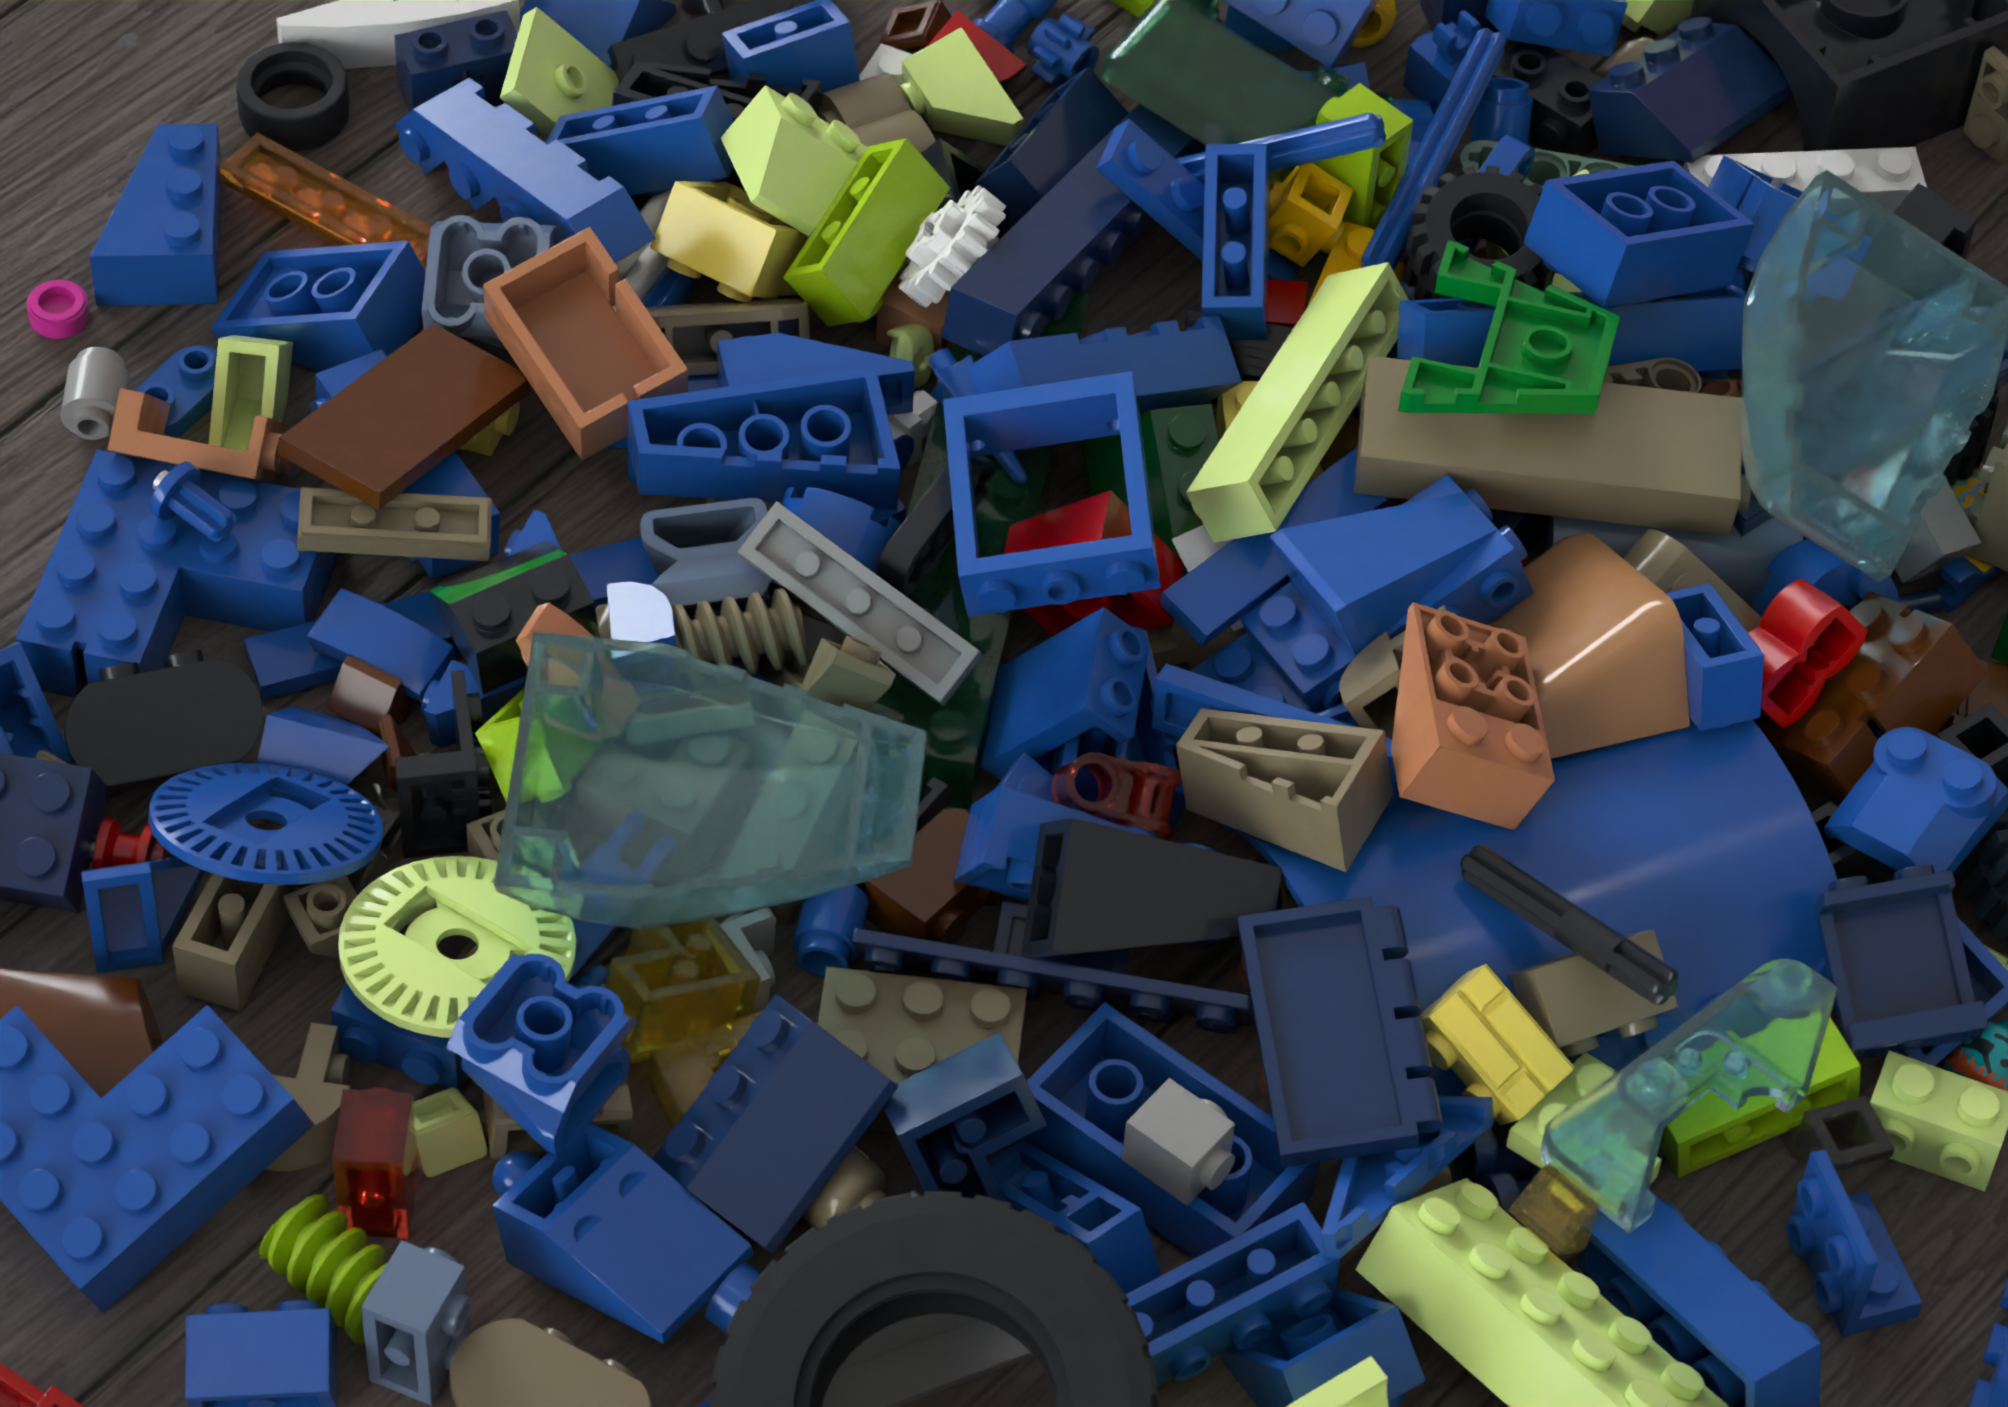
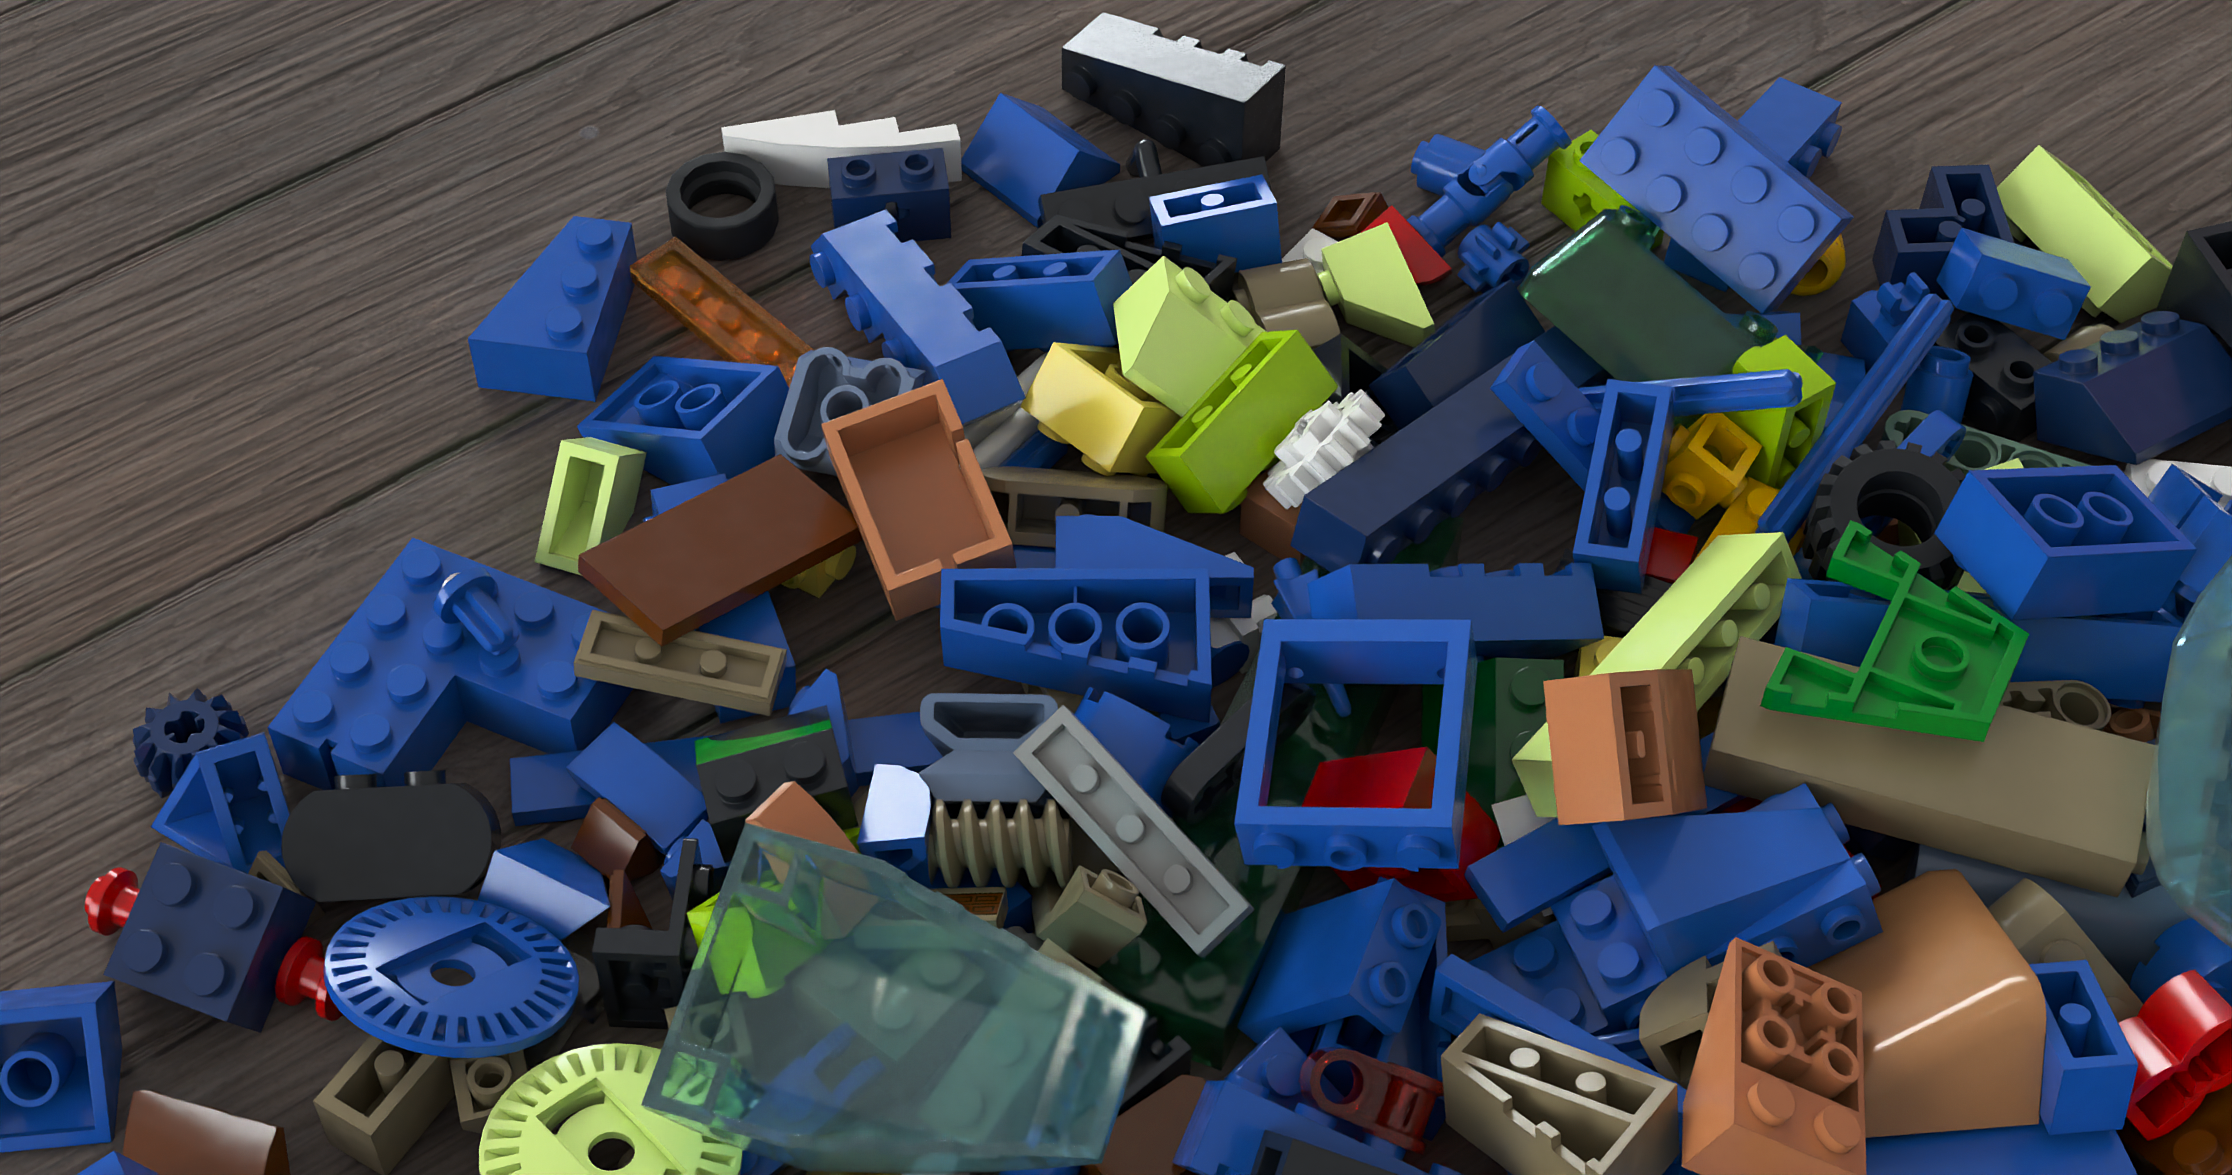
camera: 15 degrees right, 0 degrees up
(58, 309) = (437, 385): dark pink tile -> none
(93, 392) = (441, 477): light grey brick -> none
(136, 909) = (293, 1044): blue slope -> none
(140, 431) = (465, 525): nougat panel -> none
(186, 384) = (526, 490): blue plate -> none
(554, 74) = (973, 216): yellowish green plate -> none
(913, 344) = (1267, 546): yellowish green piece -> none
(1285, 459) = (1624, 745): none -> nougat slope

